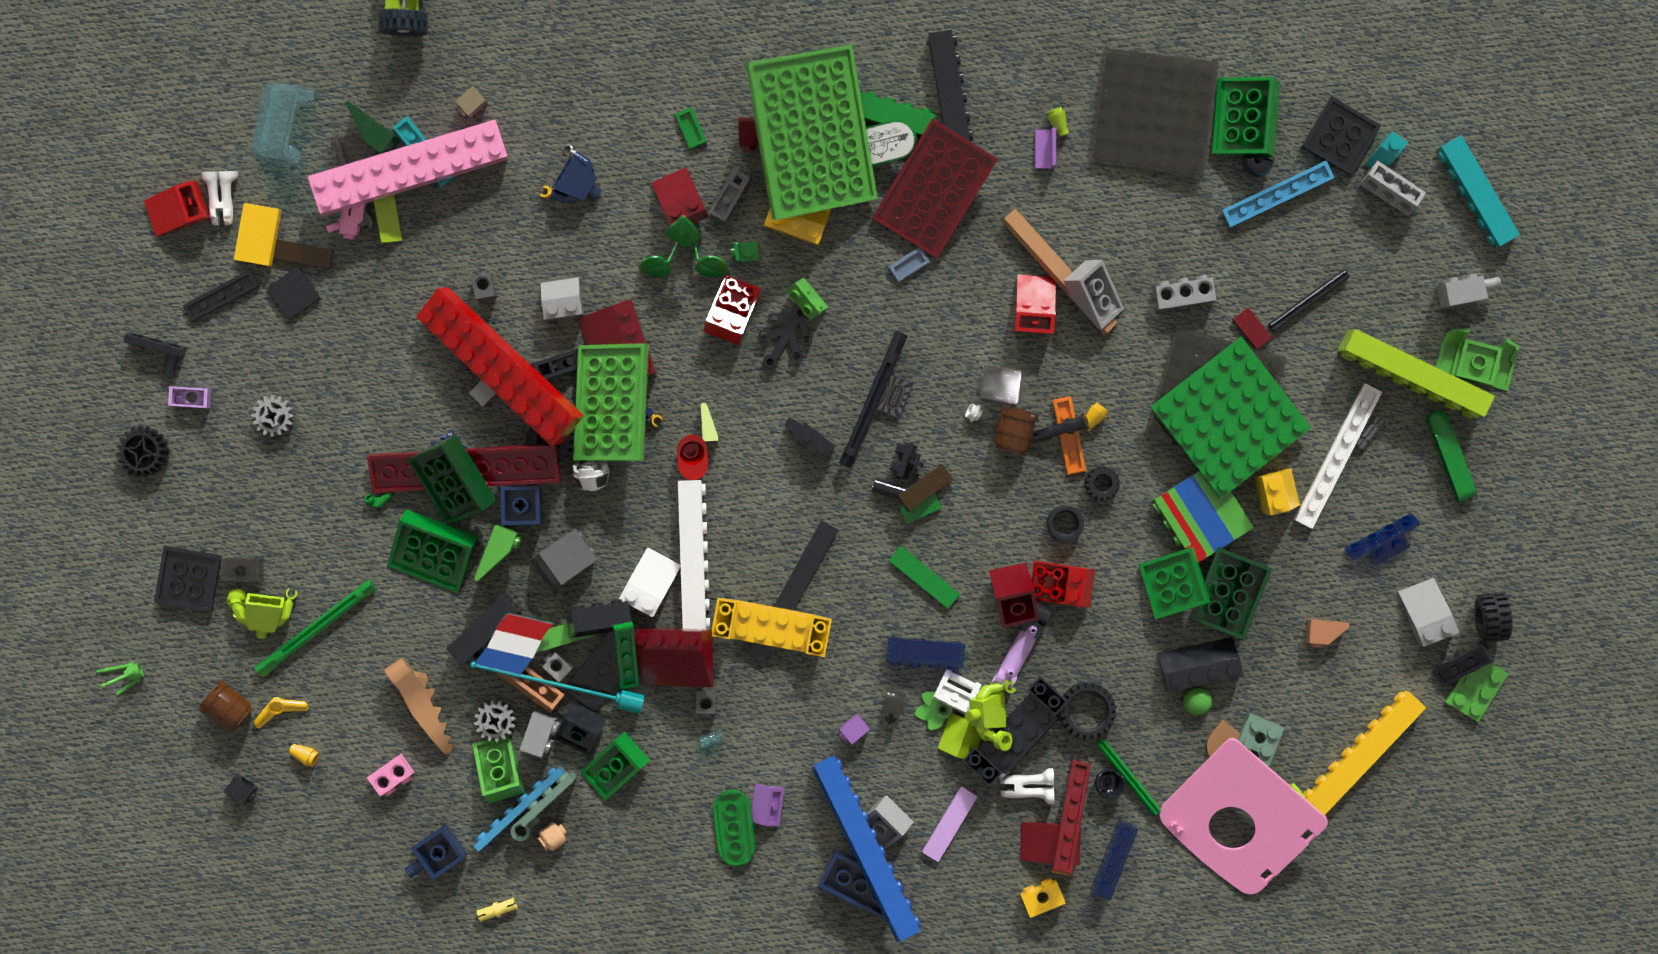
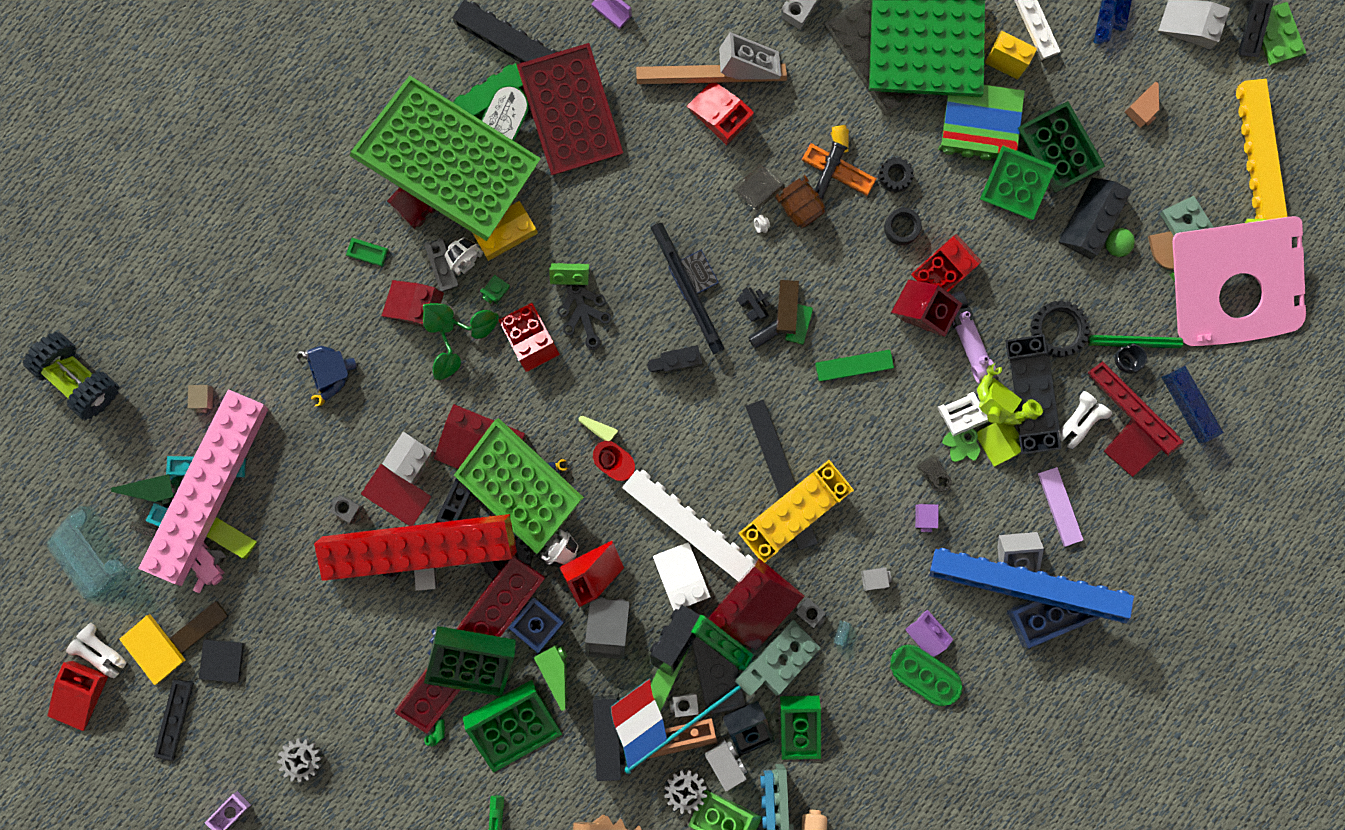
camera: 65 degrees left, 5 degrees down
(172, 350) = (180, 795): black piece -> none
(358, 151) = (156, 514): none -> teal panel
(526, 314) = (396, 495): none -> dark red window
(595, 513) = (592, 572): none -> red slope
(636, 706) = (767, 667): none -> sand green hinge
(749, 205) = (462, 255): none -> white cone
(774, 729) = (875, 578): none -> light grey brick
(909, 264) = (610, 178): sand blue tile -> none
(925, 652) = (913, 412): clear blue brick -> none
(1053, 900) = (1185, 476): yellow brick -> none

